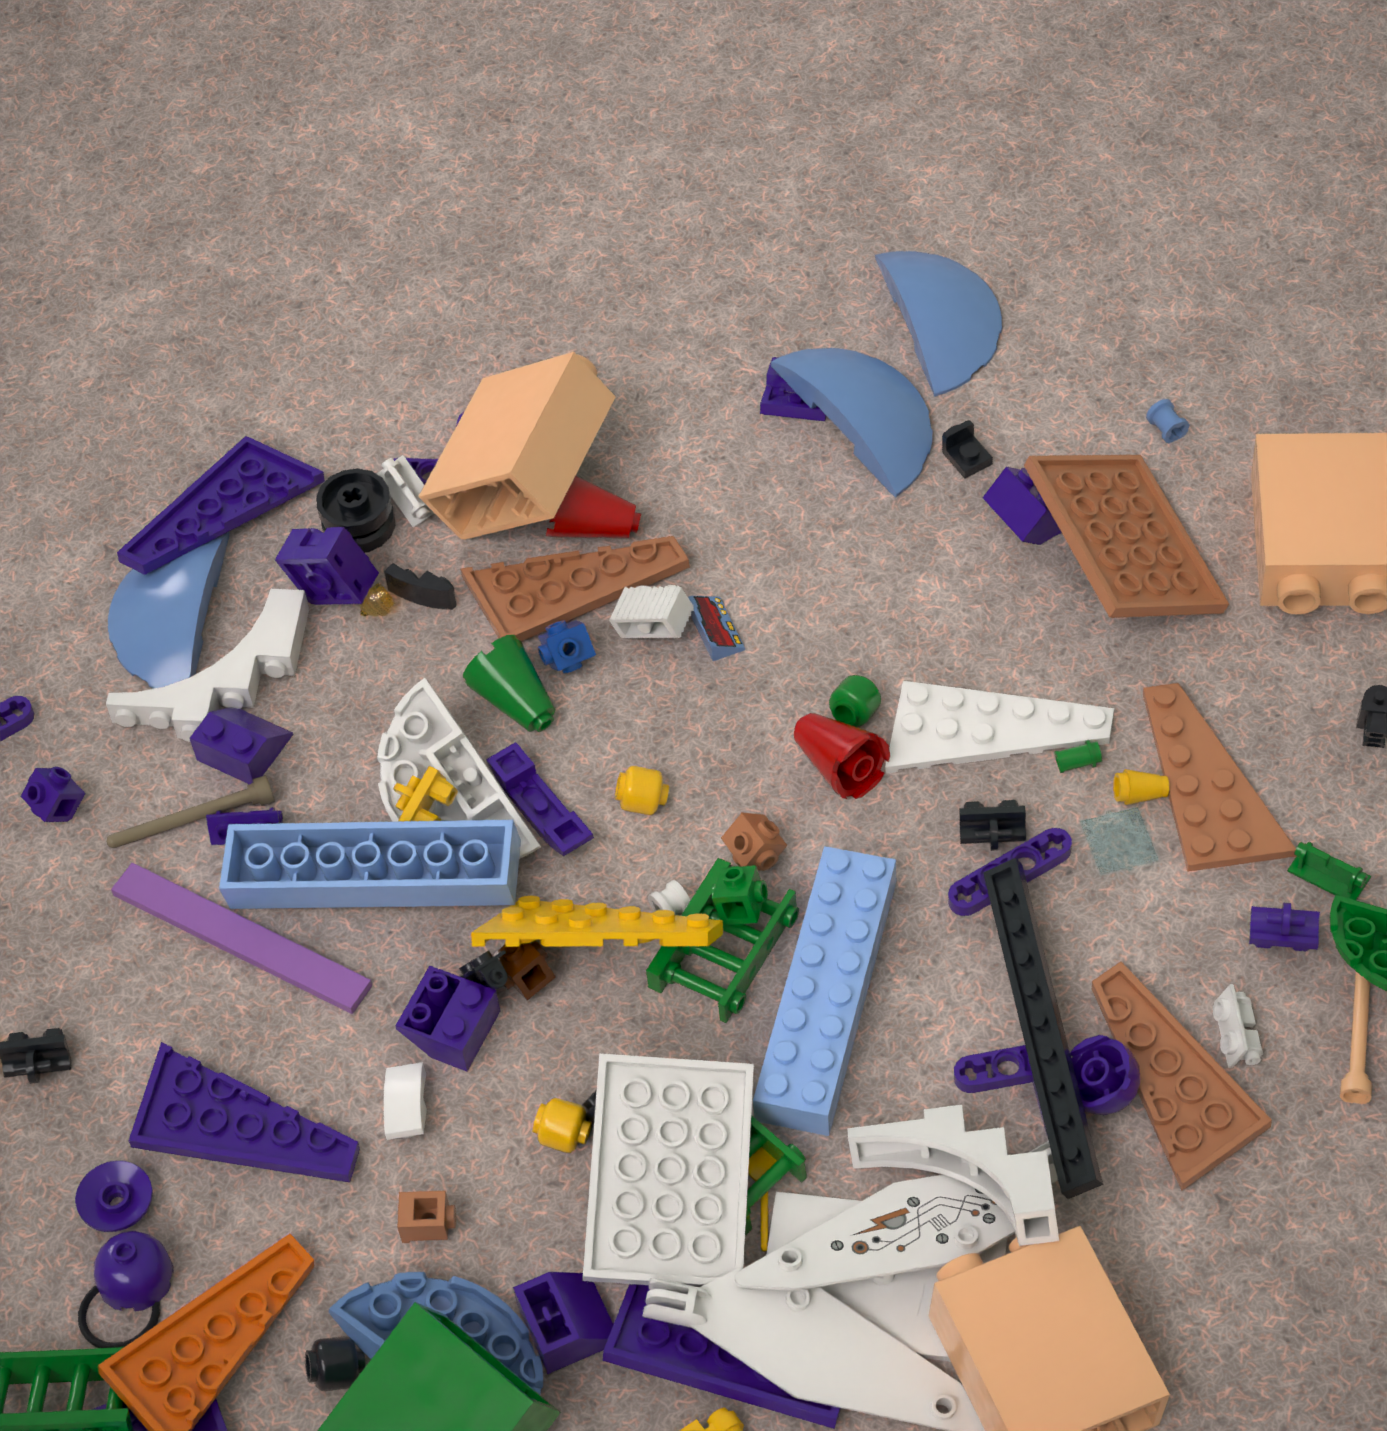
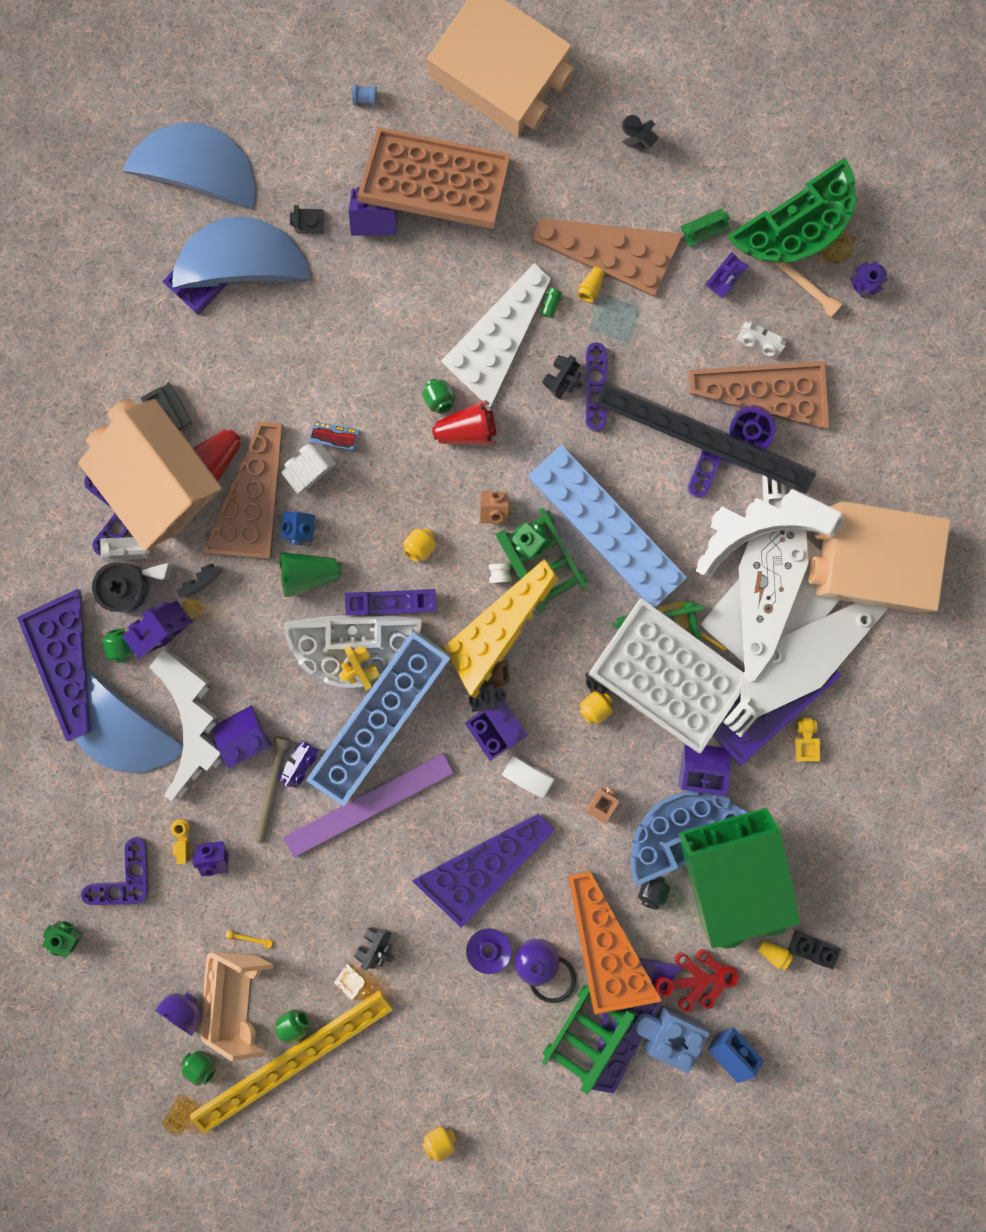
camera: 65 degrees left, 35 degrees up
(73, 744) = (181, 849): none -> yellow plate
(269, 547) = (116, 647): none -> green head
(405, 540) = (160, 572): none -> white slope
(618, 442) = (170, 404): none -> pearl dark grey plate

